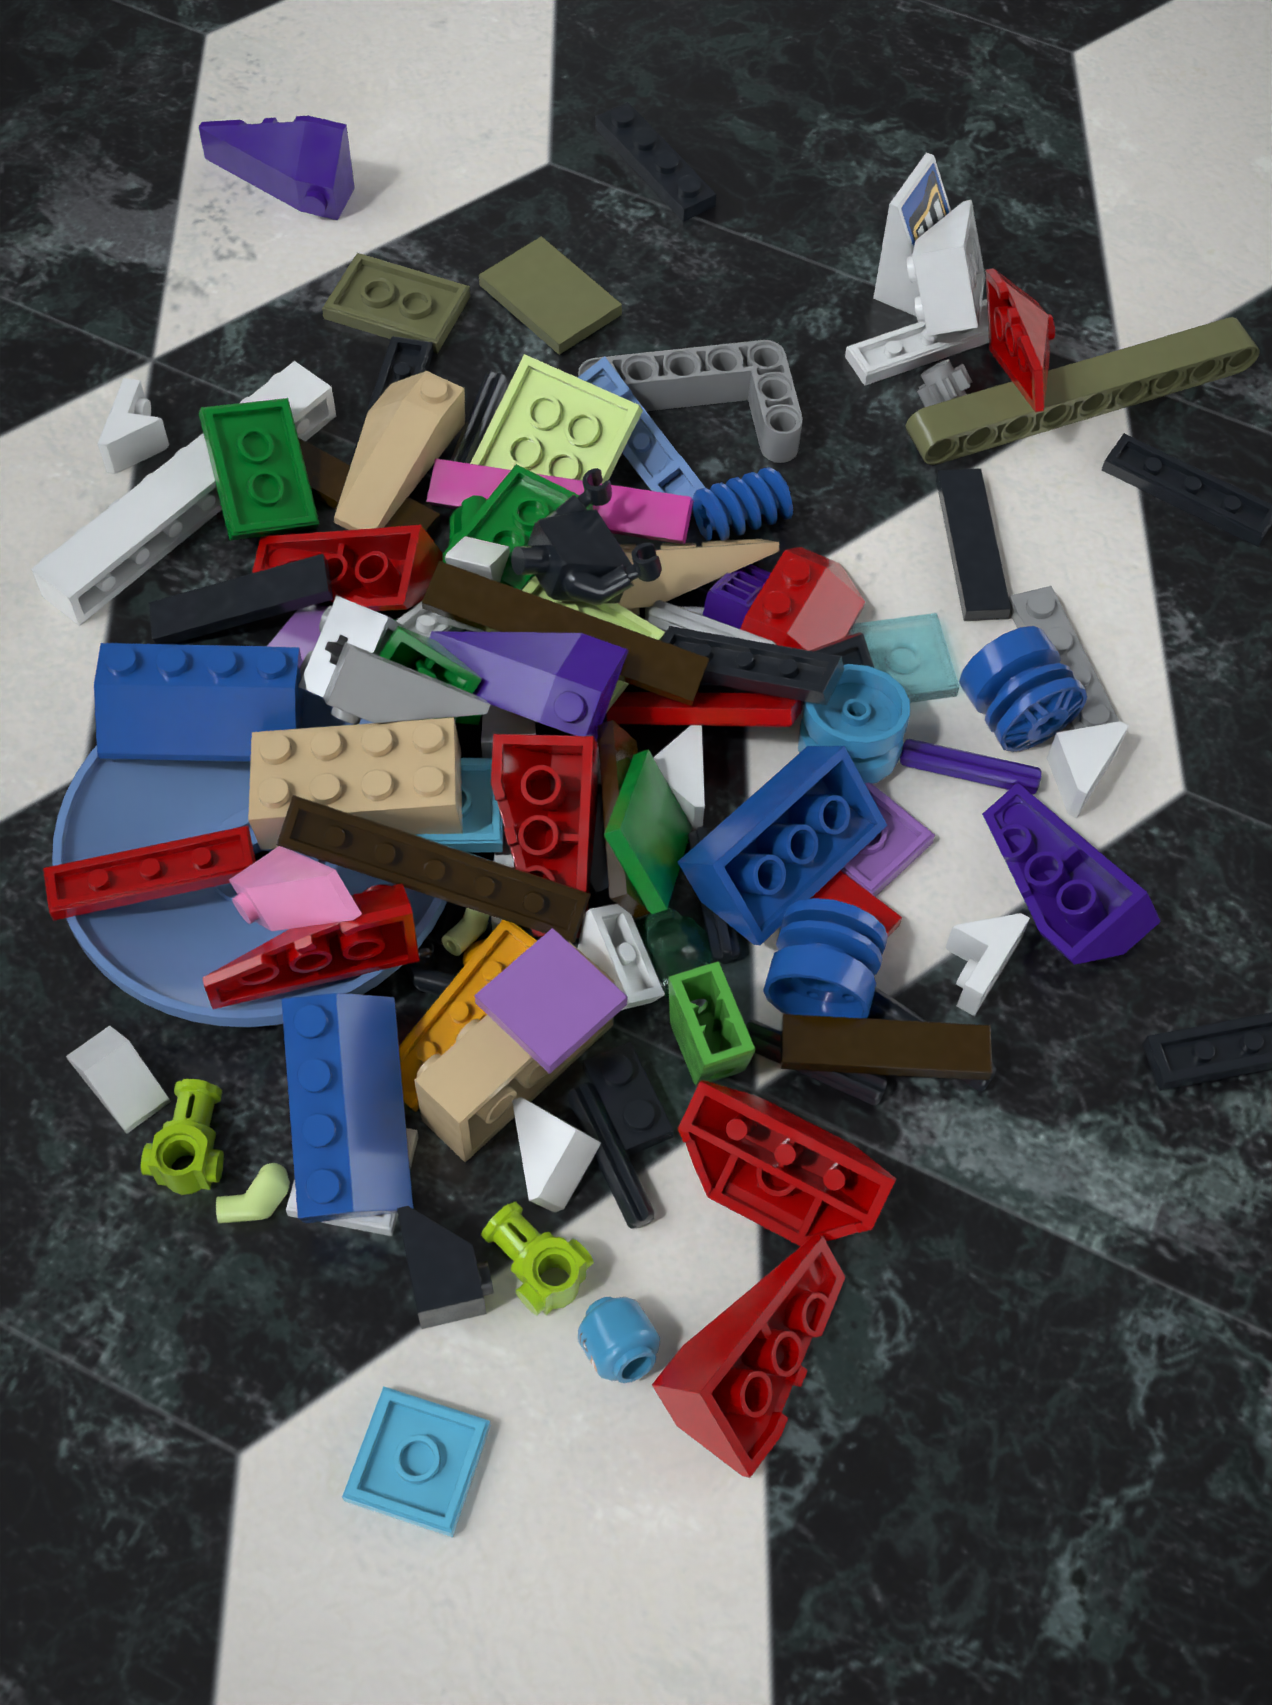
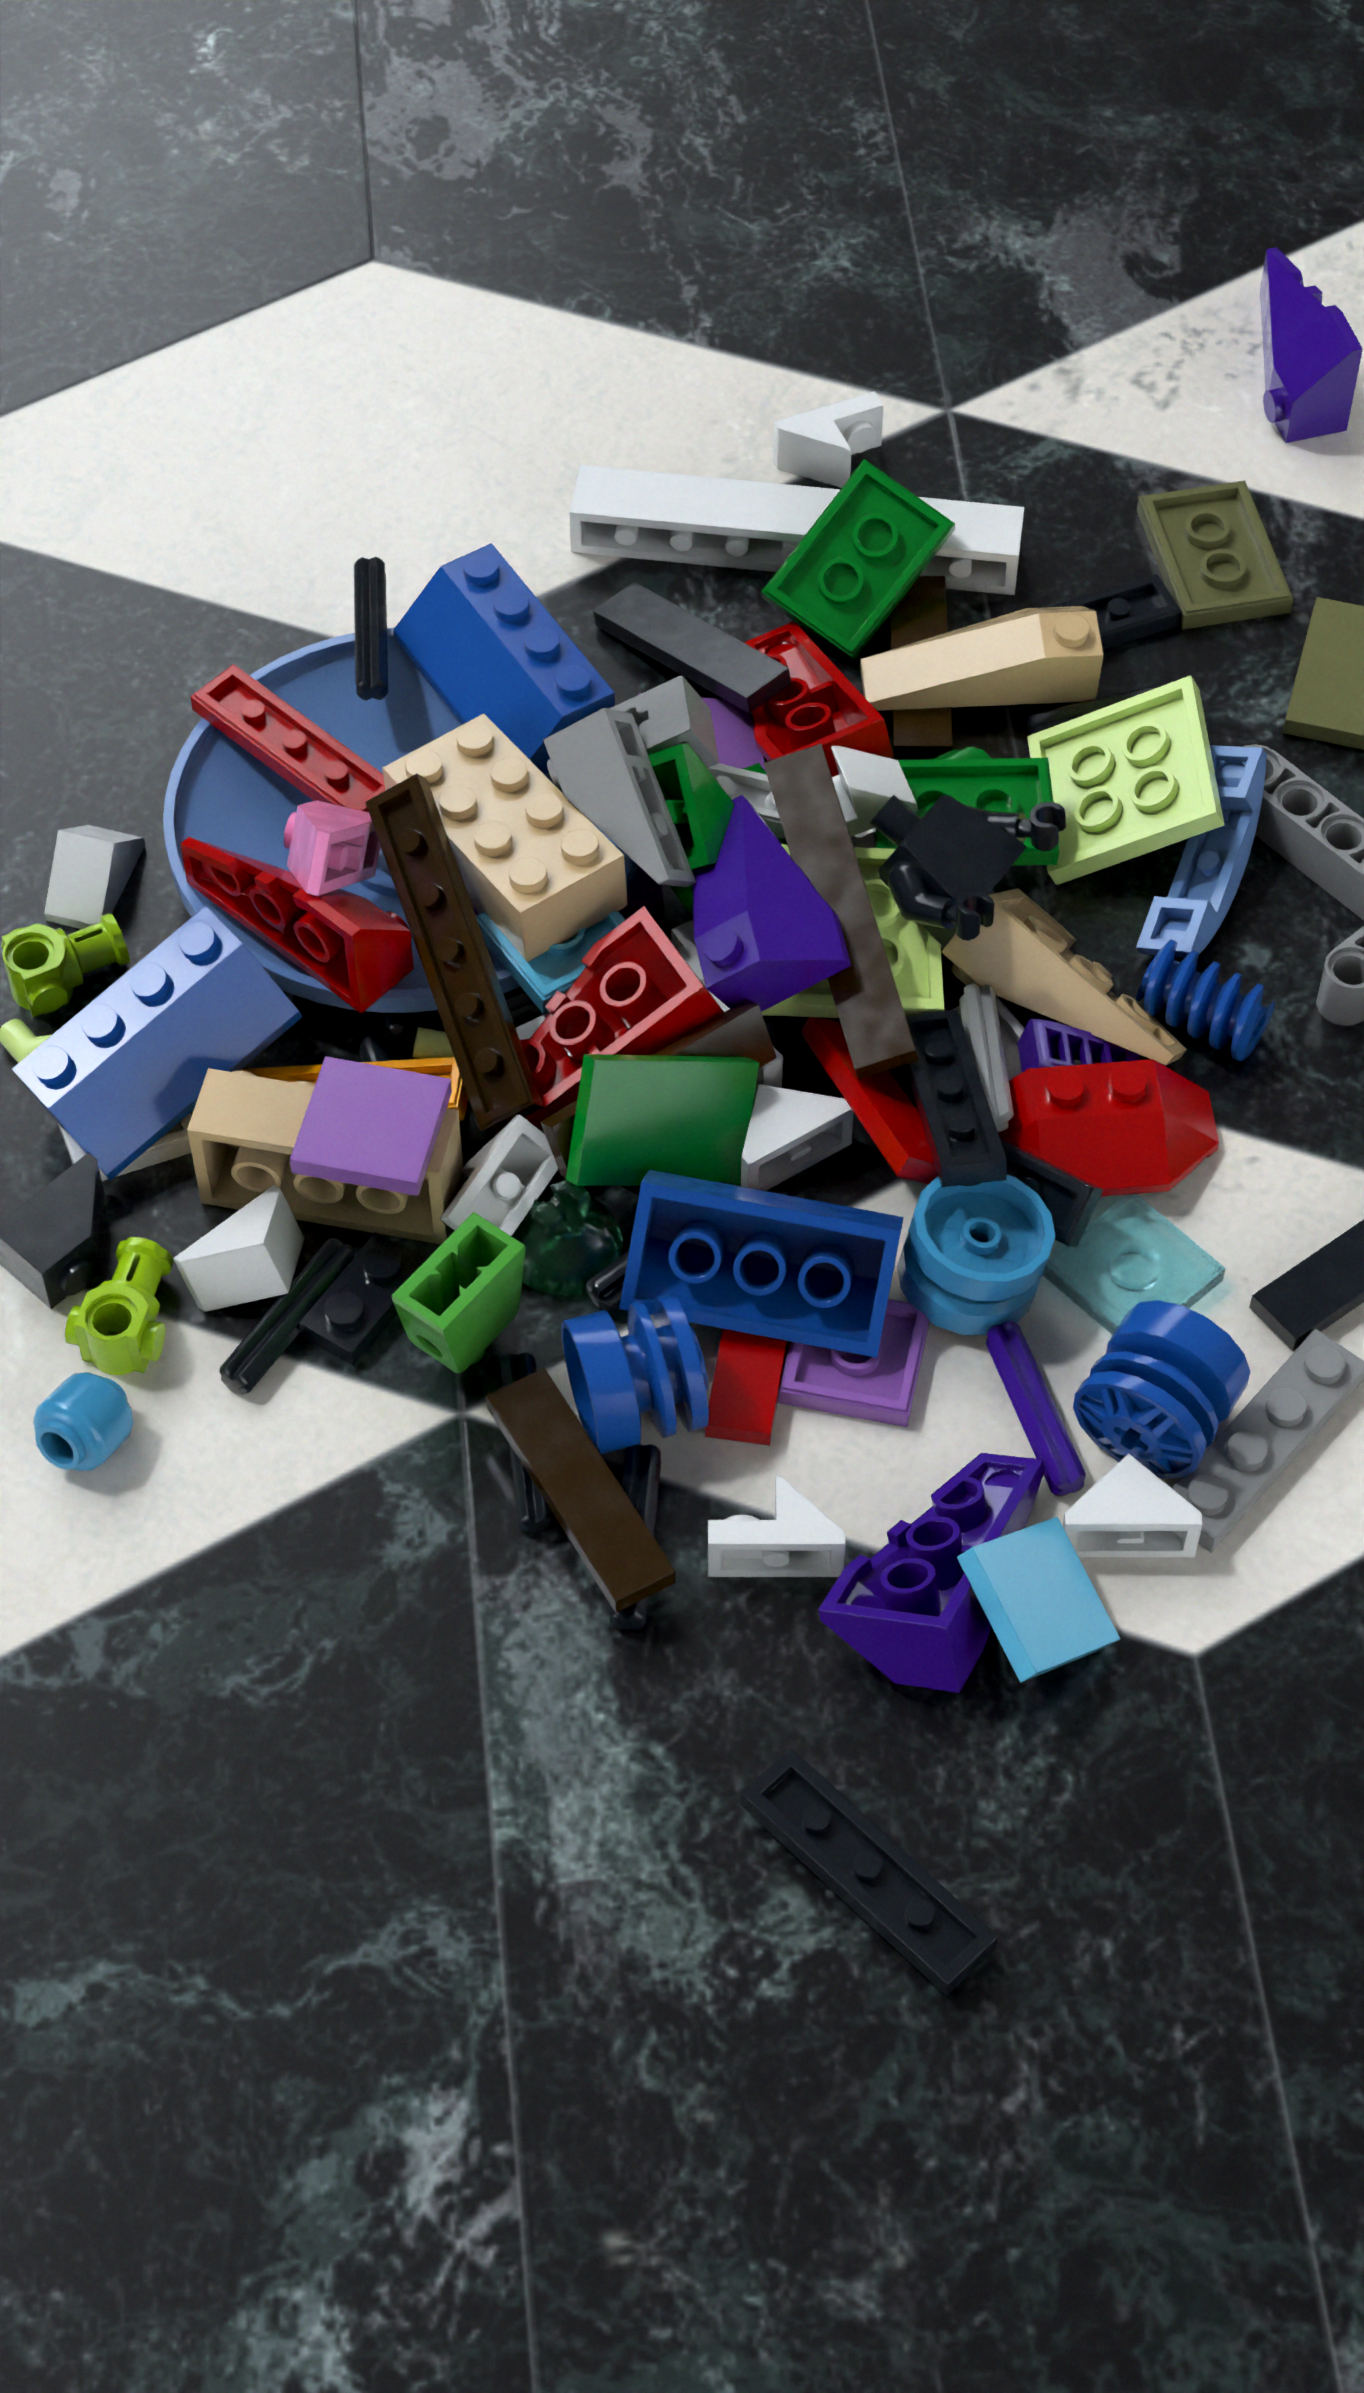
camera: 60 degrees right, 5 degrees down
(85, 765) = (370, 628): none -> black axle
(627, 513) = (1081, 879): dark pink tile -> none
(740, 1368) = (134, 1552): red wedge -> none
(780, 1167) = (370, 1453): red wedge -> none
(1130, 839) = (1038, 1598): none -> medium azure tile

